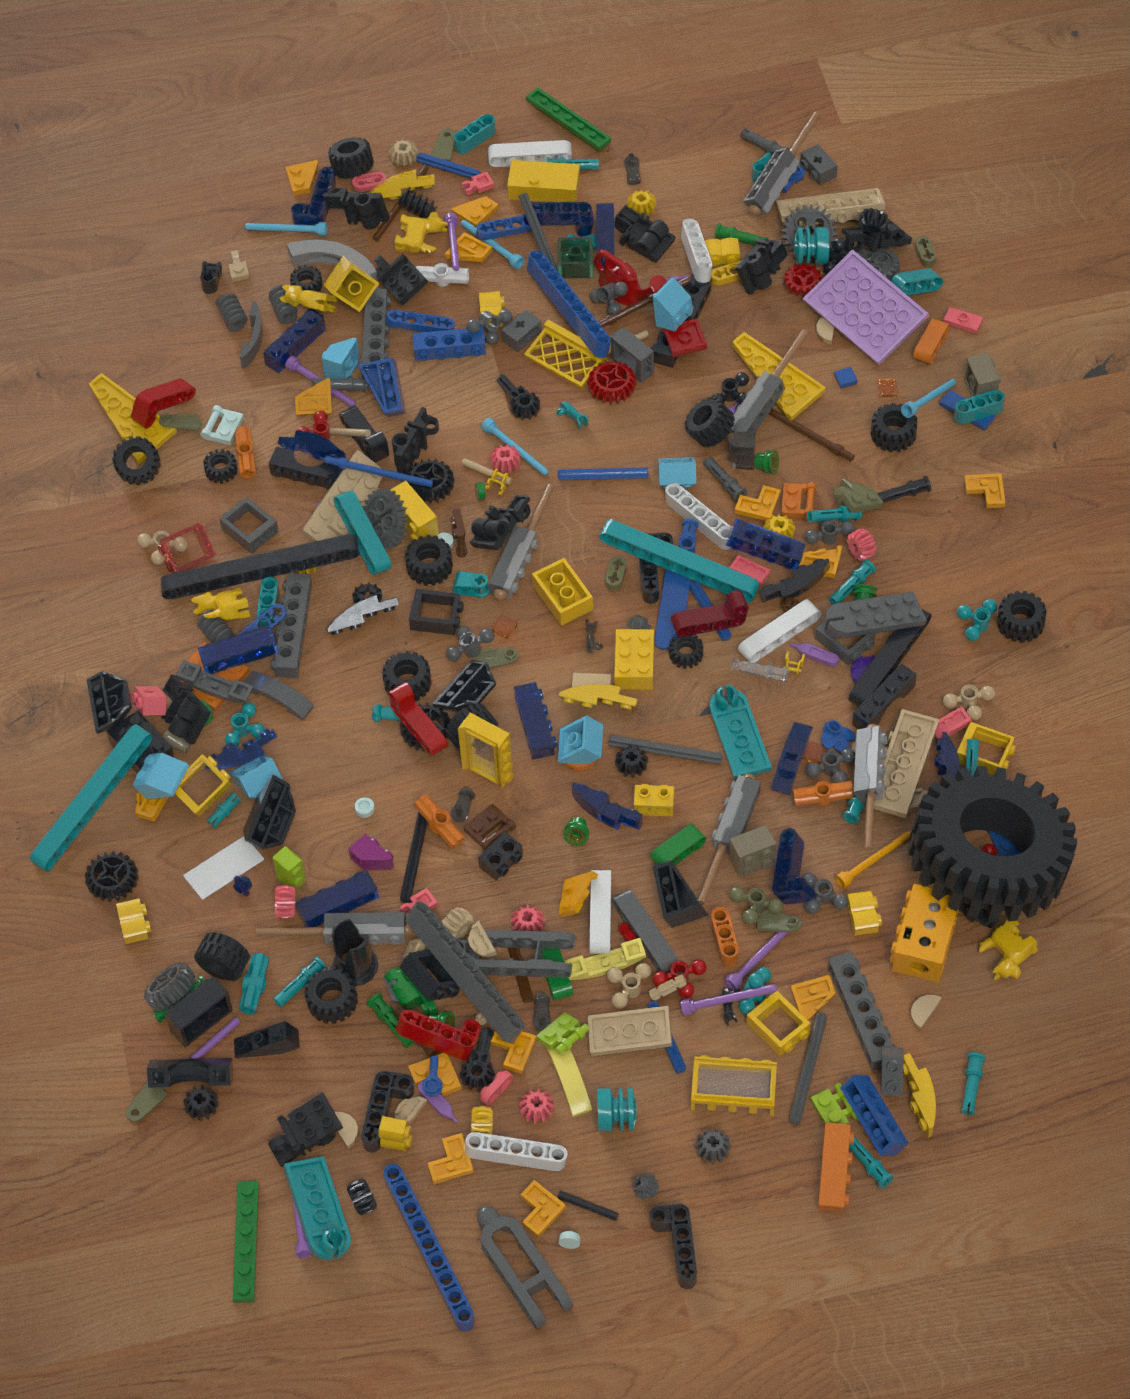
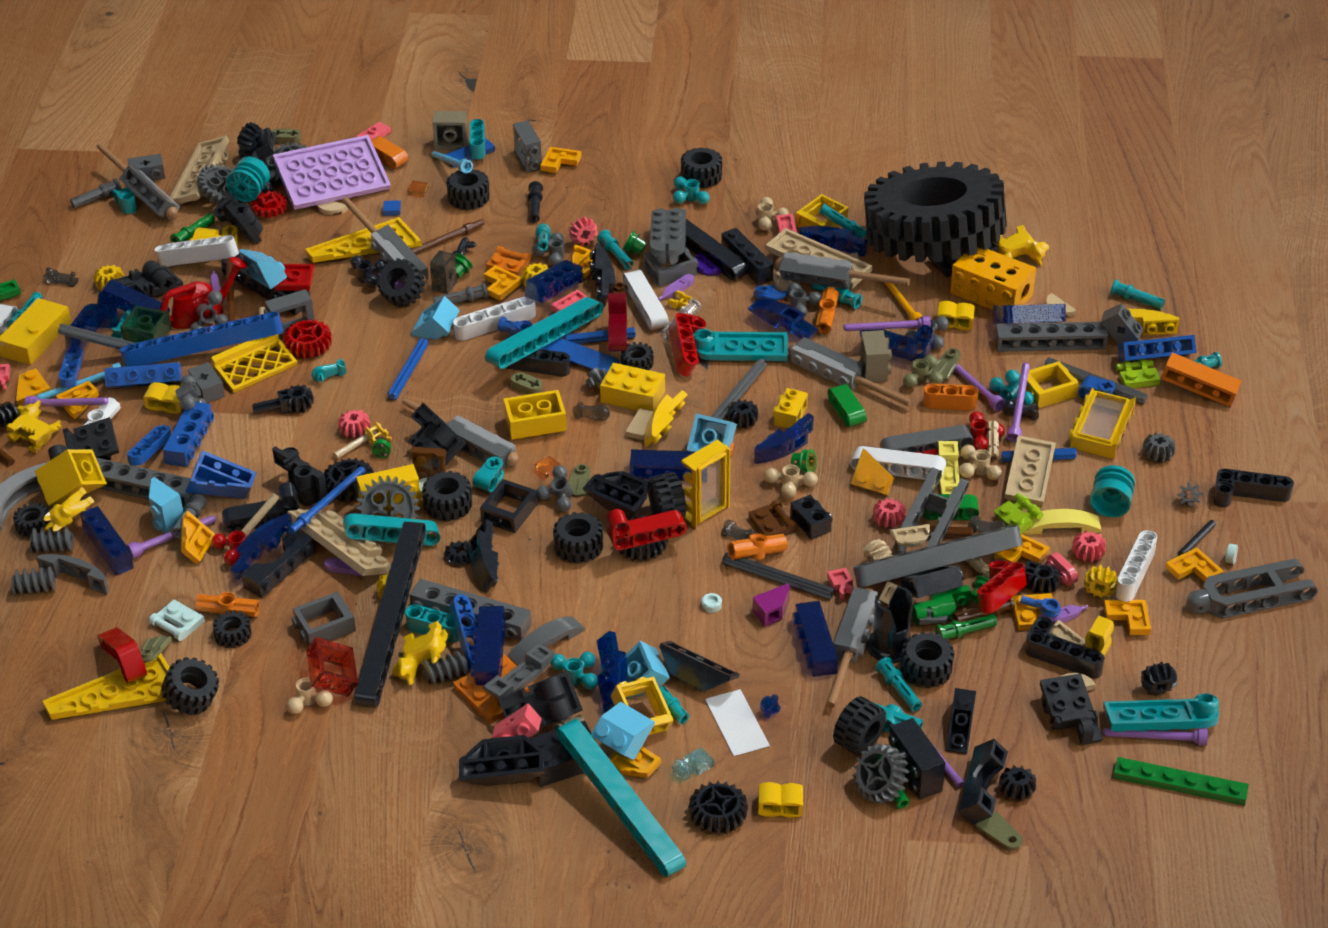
camera: 75 degrees left, 15 degrees down
(164, 849) = (695, 762): none -> clear light blue plate
(285, 901) = (806, 672): coral gear -> none
(289, 868) = (771, 659): lime brick -> none
(383, 713) = (609, 563): teal piece -> none
(431, 1255) = (1219, 646): blue beam -> none
(490, 426) = (308, 427): medium azure piece -> none
(509, 281) = (143, 375): none -> blue brick
(532, 828) = (790, 479): none -> tan piece
(676, 896) = (900, 411): black wedge -> none
(714, 684) = (683, 343): none -> red beam
(787, 1070) = (1098, 384): none -> blue piece
(802, 455) = (464, 246): none -> black piece
(812, 995) = (1024, 354): light orange wing -> none
(814, 879) = (924, 320): none -> medium lavender piece
(856, 496) = (524, 225): olive plate -> none
(883, 981) = (1029, 313): none -> clear blue beam
(917, 281) = (320, 137): teal beam -> none
(984, 452) = (528, 147): none -> dark grey window

